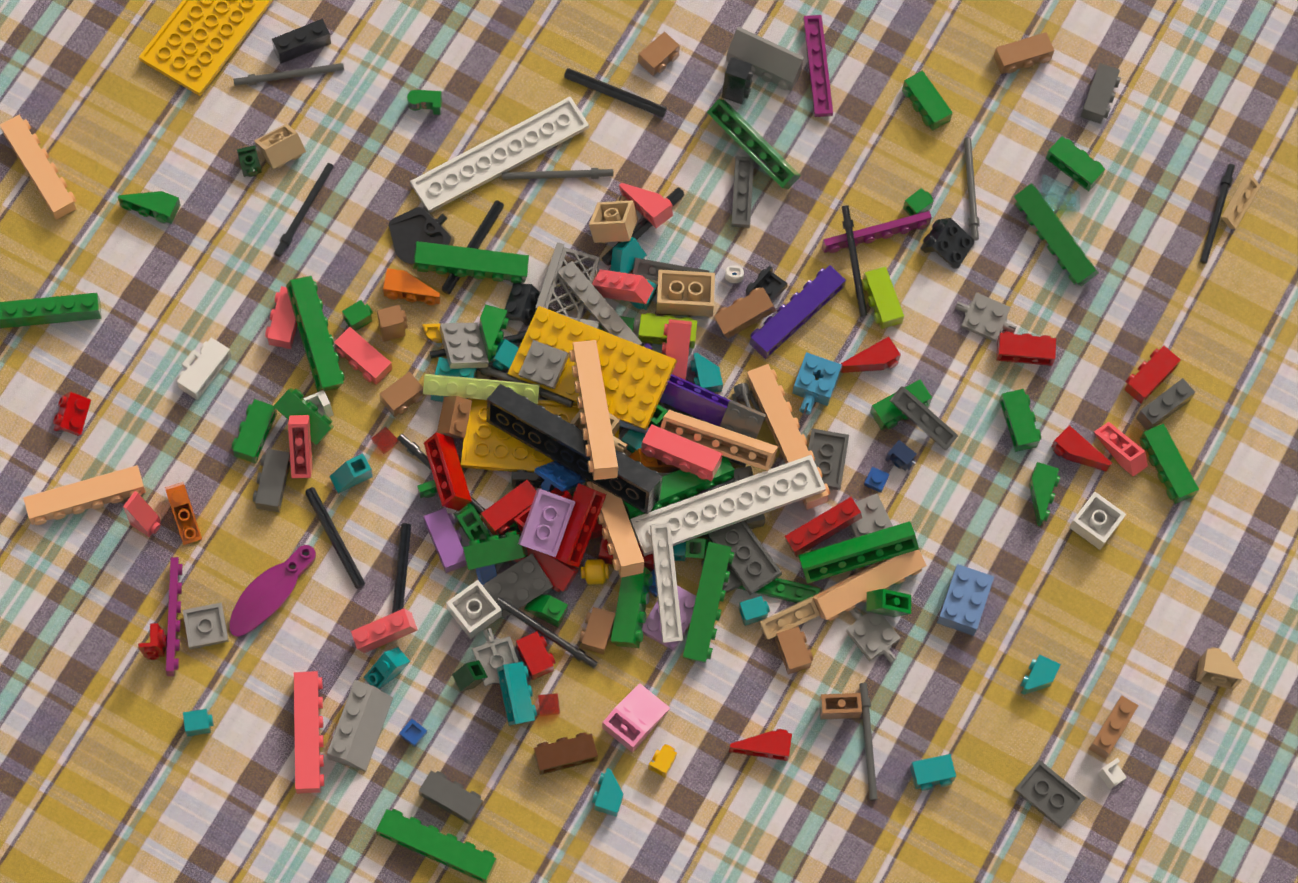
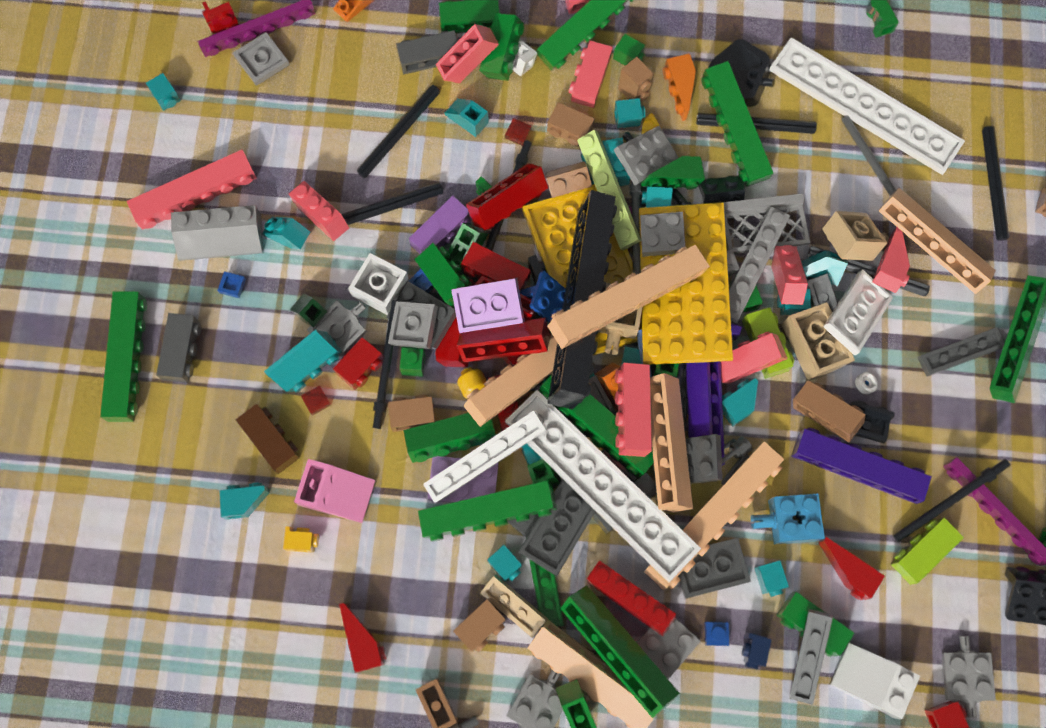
camera: 70 degrees right, 5 degrees up
(269, 592) = (320, 97): magenta plant -> none
(414, 342) = (628, 113): none -> teal brick
(528, 593) = (413, 325): none -> light grey plate
(645, 162) = (937, 241): none -> light nougat brick
(676, 250) = (858, 312): none -> white tile
(853, 419) = (771, 578): none -> teal brick
(960, 383) = (875, 681): none -> white slope

